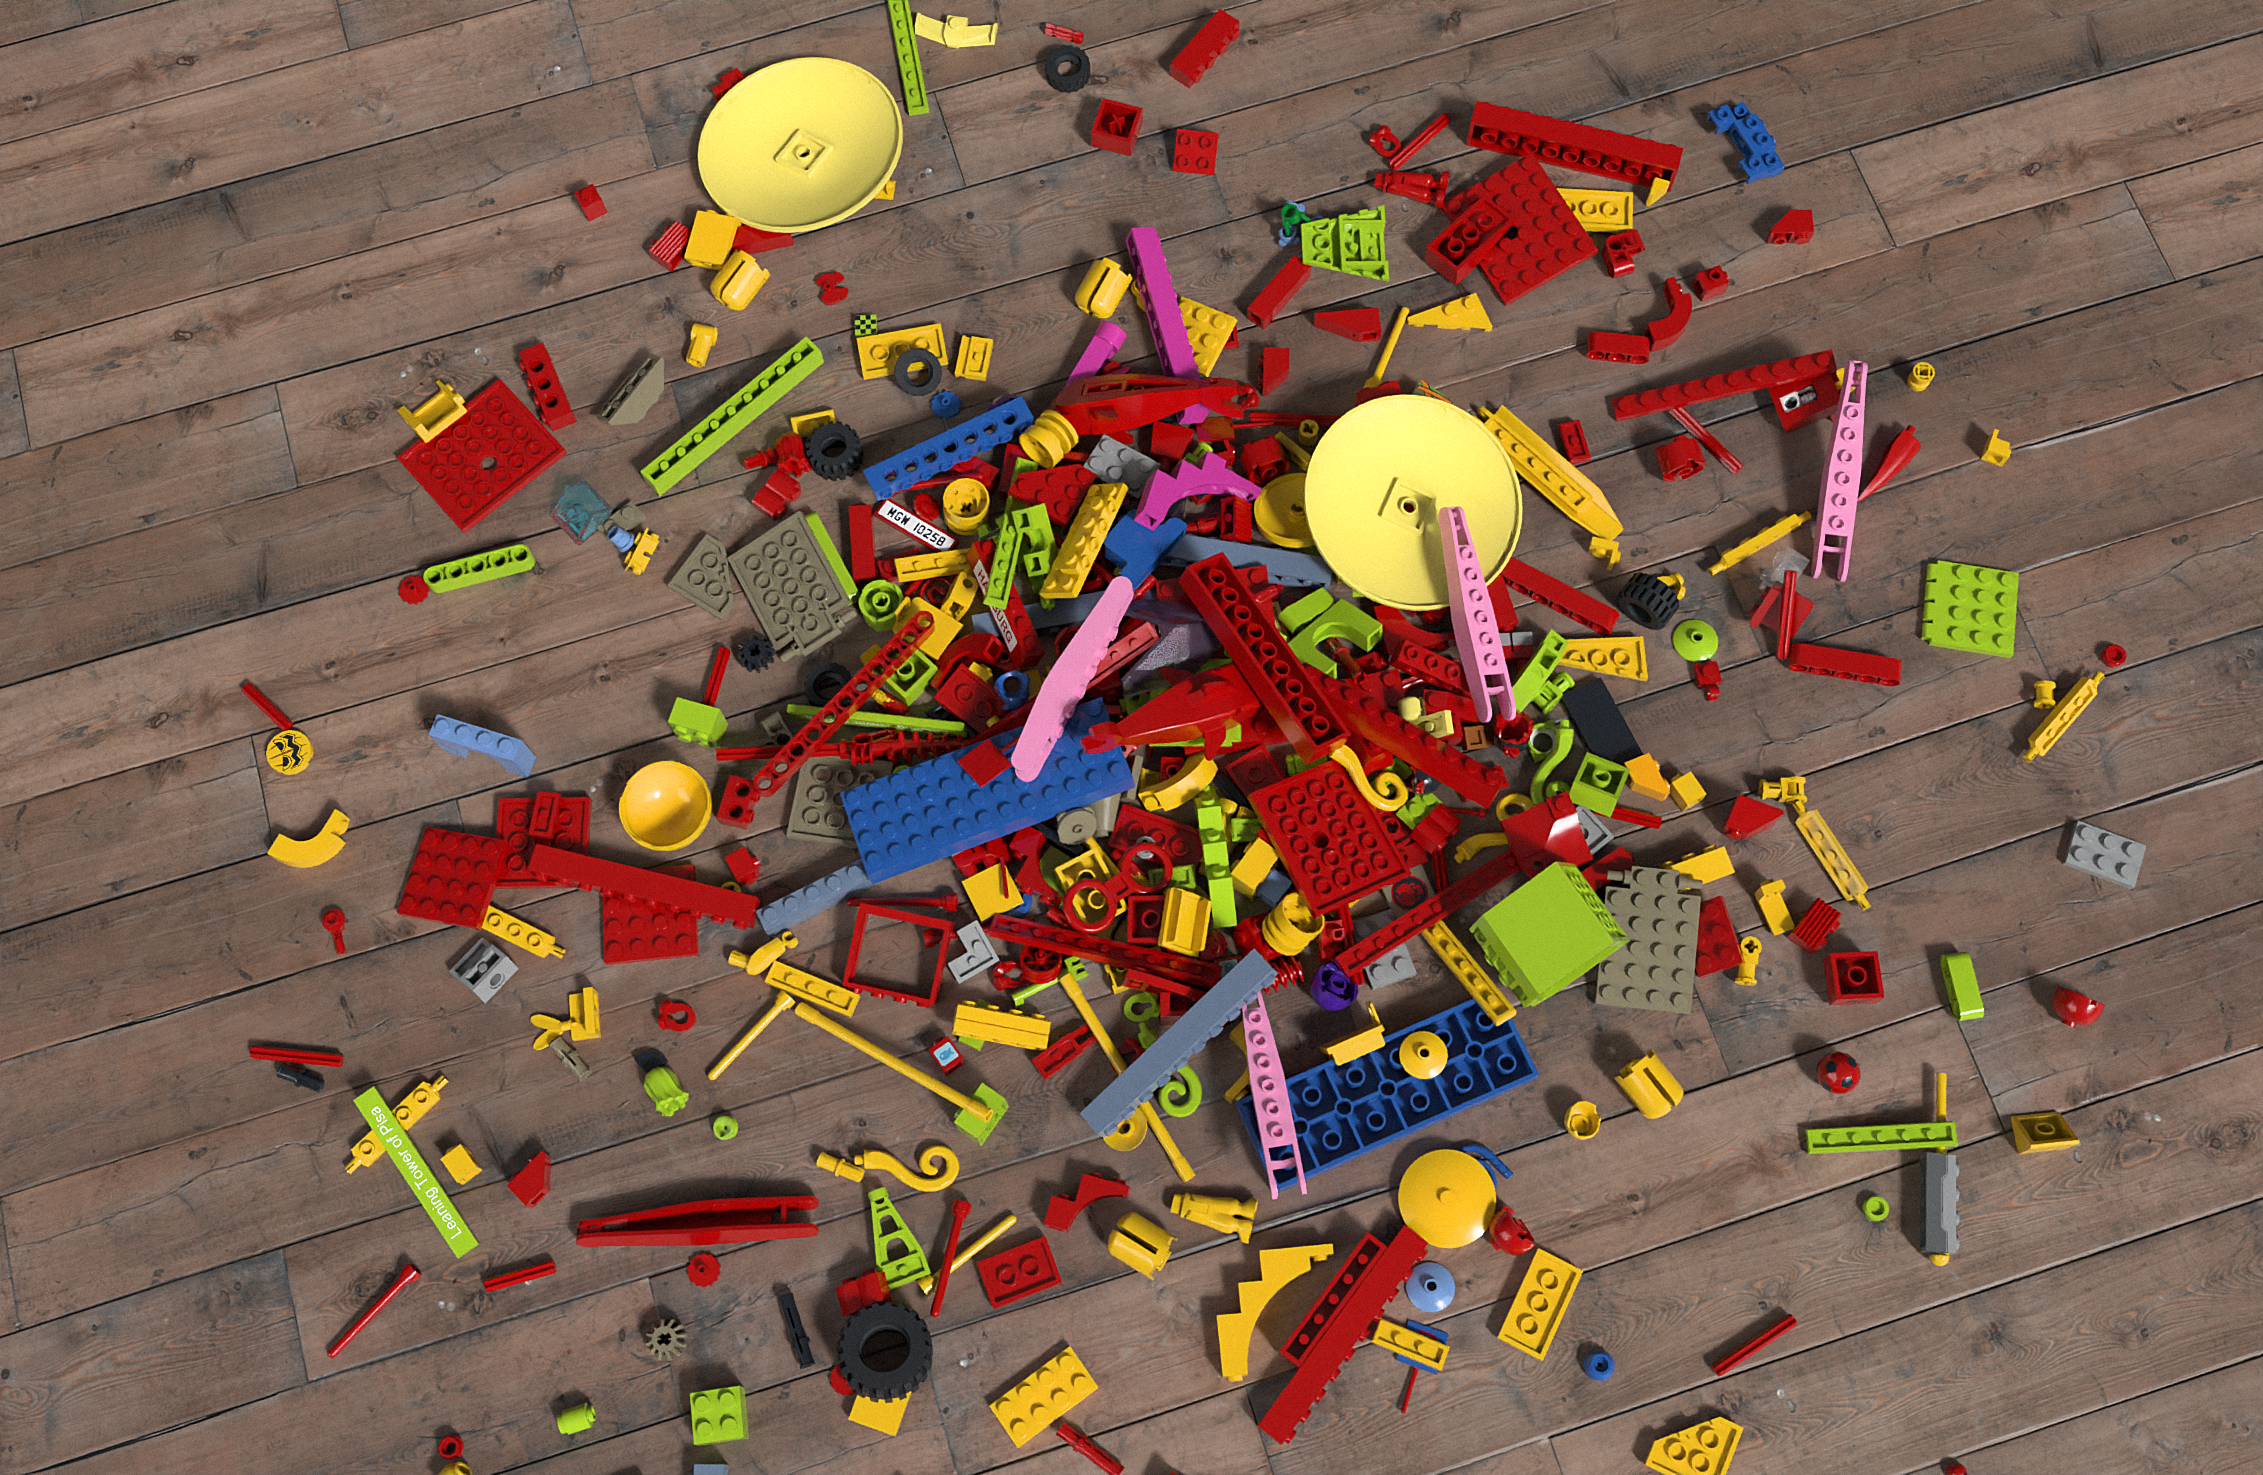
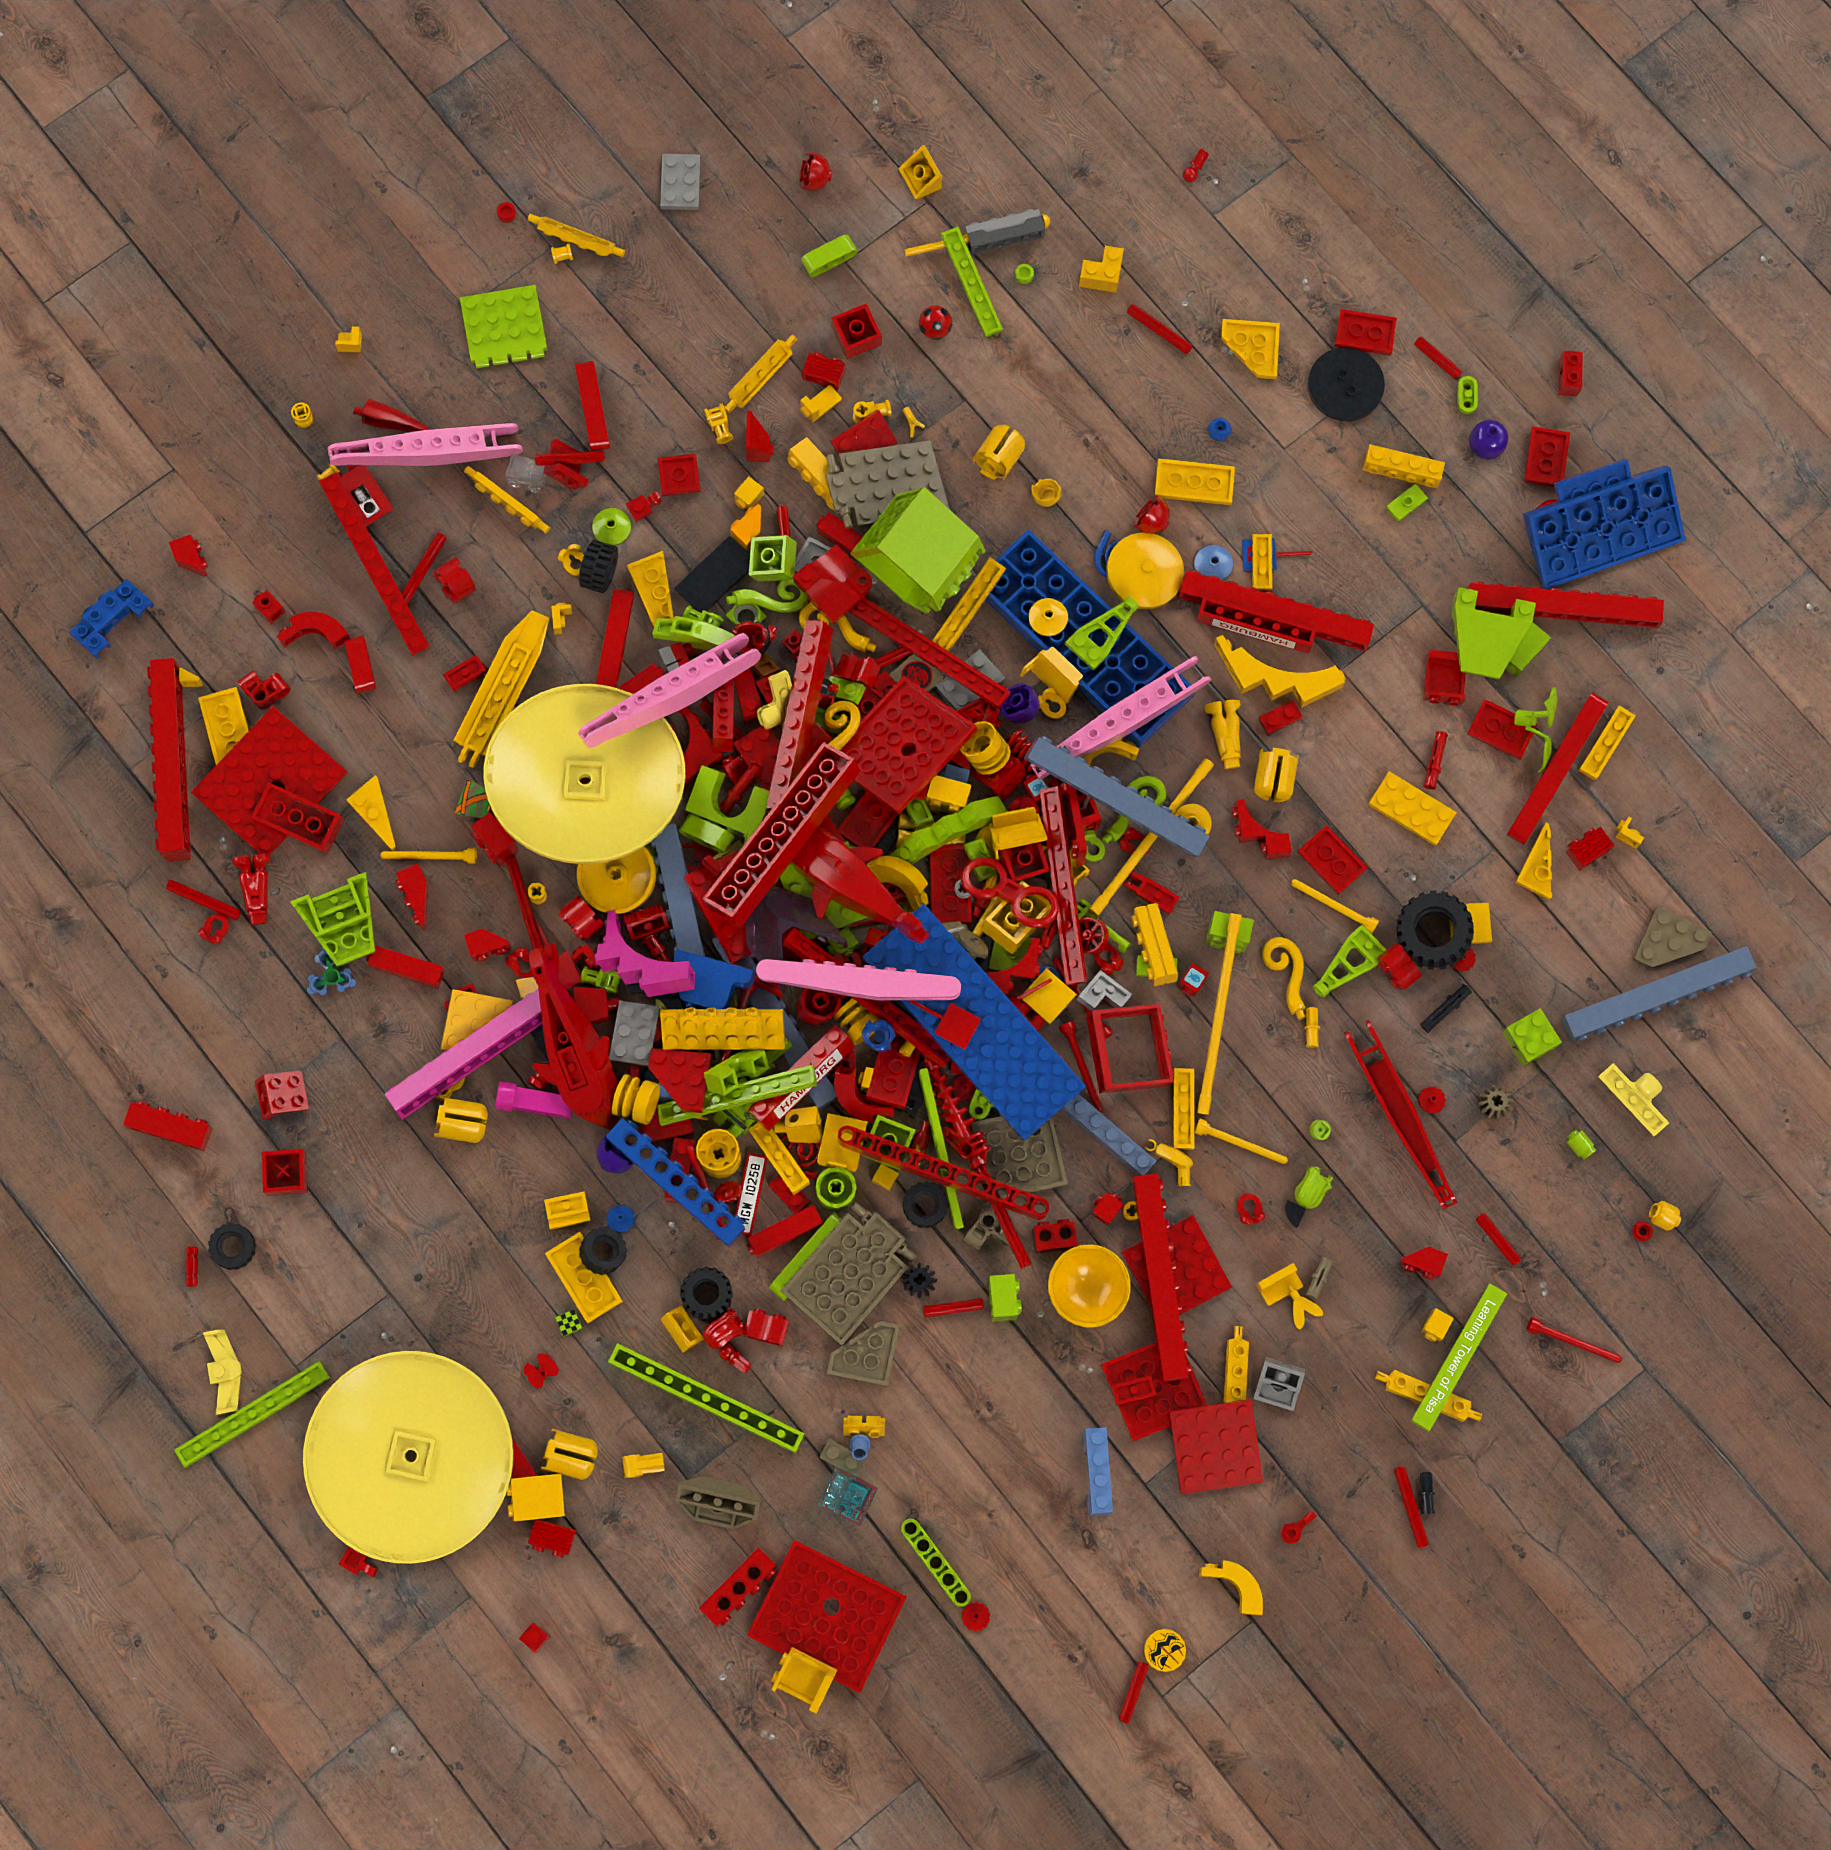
camera: 120 degrees left, 5 degrees up
(960, 1211) = (1306, 922): red piece -> none
(1212, 1286) = (1280, 717): none -> red plate
(1294, 452) = (563, 891): yellow tile -> none
(1328, 1017) = (1050, 694): none -> yellow piece
(1370, 1081) = (1086, 648): none -> lime plate
(1722, 1004) = (912, 421): none -> yellow bar
(1733, 727) = (679, 475): none -> red plate
(1845, 1305) = (1103, 275): none -> yellow brick

